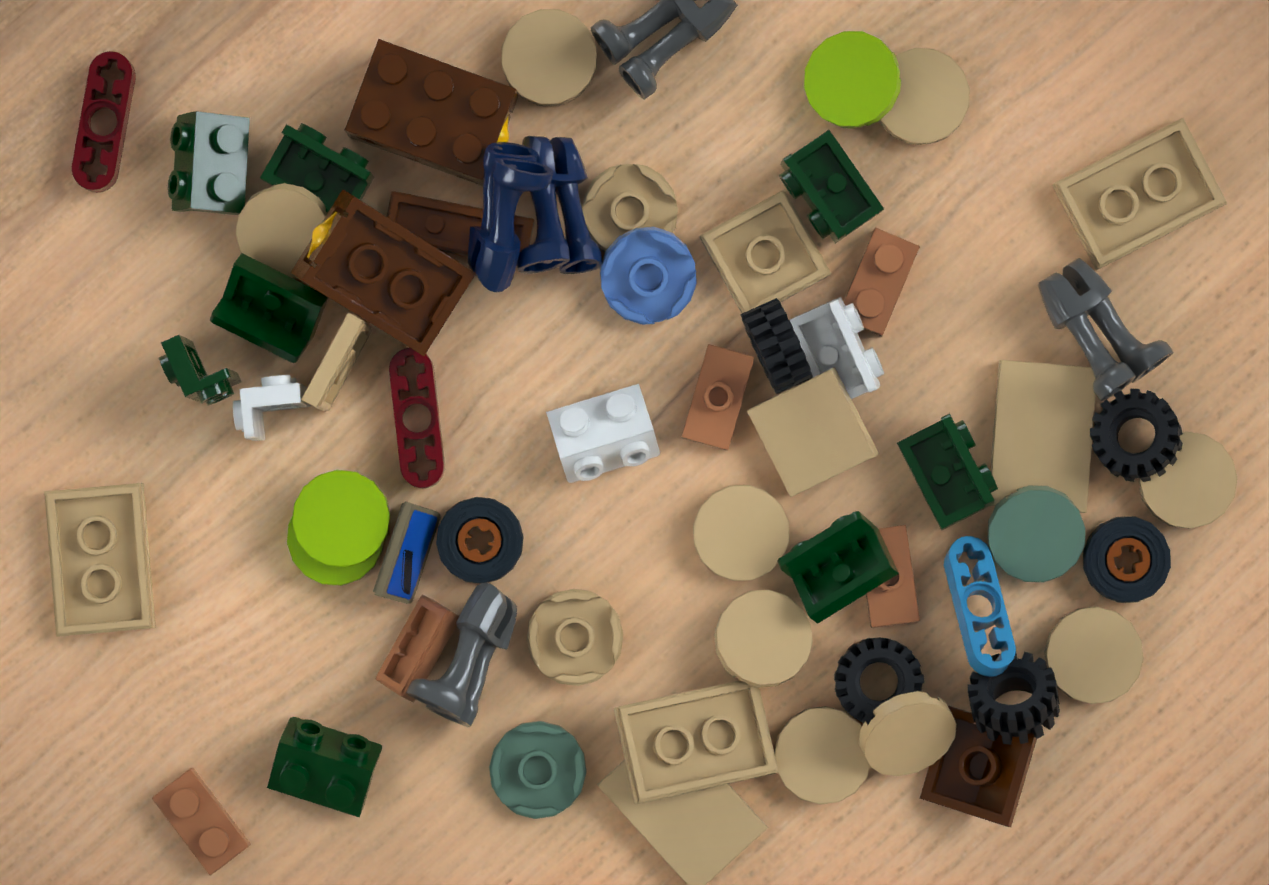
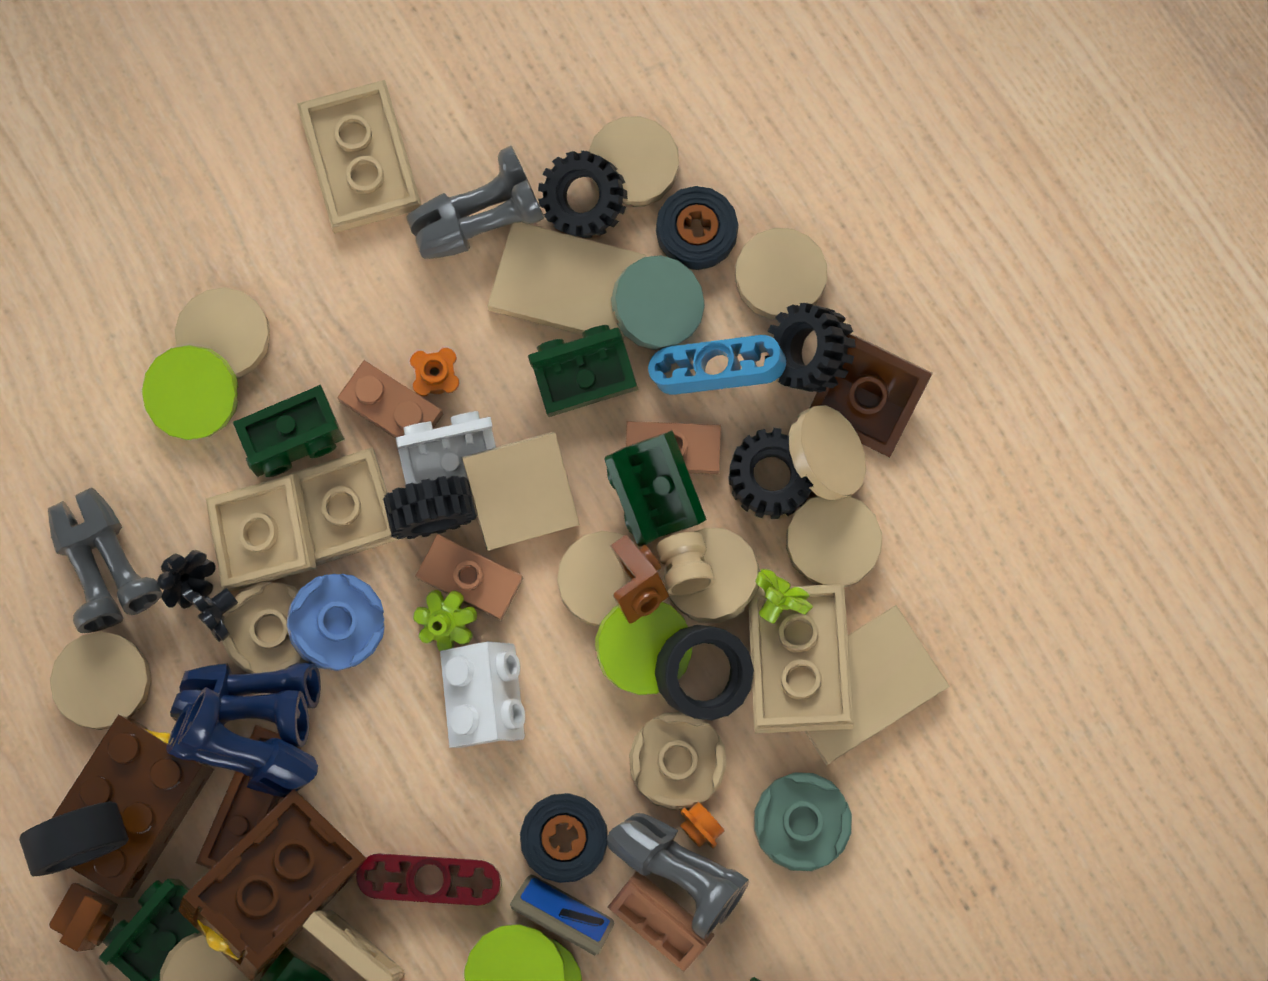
camera: 80 degrees left, 10 degrees down
(321, 97) = (83, 918): none -> dark orange bracket
(388, 82) = (73, 838): none -> black tyre
(514, 671) = (701, 825): none -> orange plate
(636, 153) = (212, 610): none -> black plant
(651, 681) = (739, 678): none -> black tyre
(663, 117) = (185, 573): none -> black plant
(670, 382) = (449, 615): none -> lime plant
(679, 583) = (631, 650): none -> lime tile
(722, 182) = (261, 533): none -> tan tile
(731, 578) = (646, 588): none -> dark orange bracket
(752, 711) = (780, 596): none -> lime plant
(770, 609) = (685, 563): none -> tan wheel
(926, 307) = (429, 384): none -> orange plate

